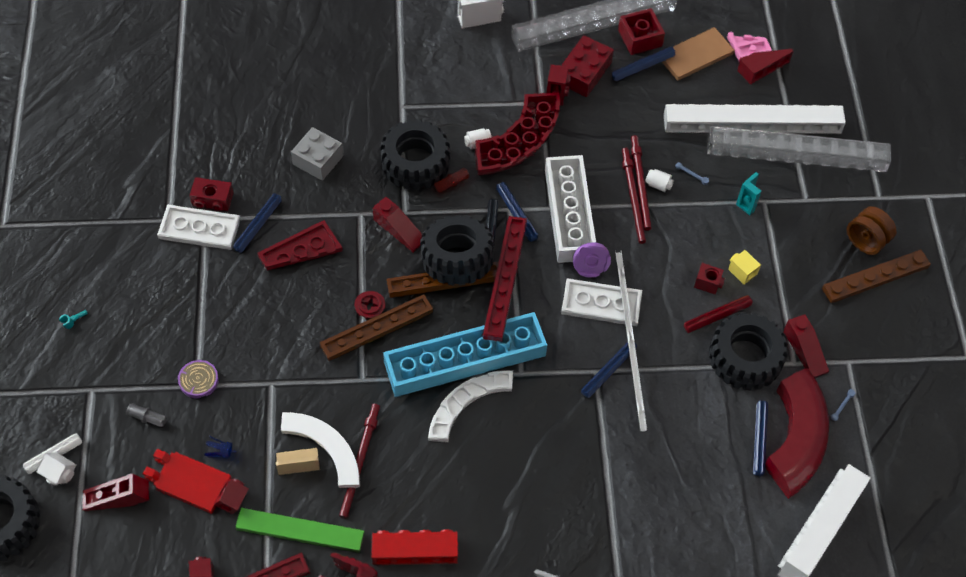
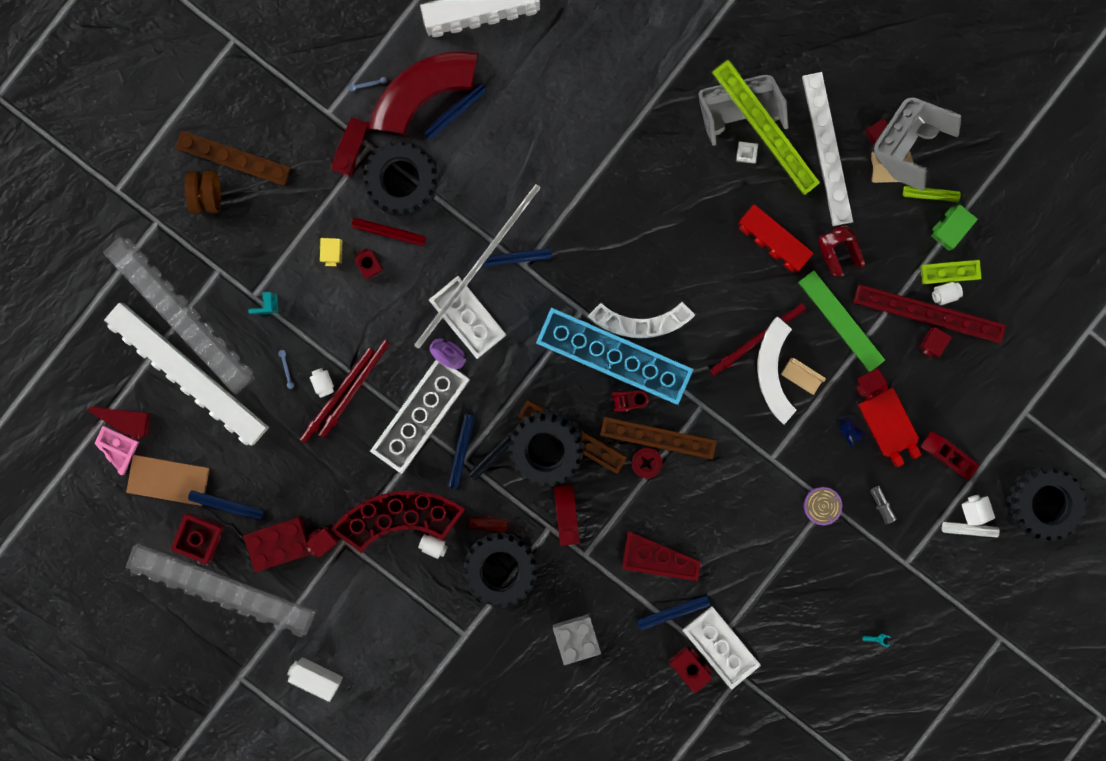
camera: 140 degrees left, 30 degrees up
(424, 332) = (627, 400): none -> dark red piece
(505, 279) = (530, 392): dark red tile -> none

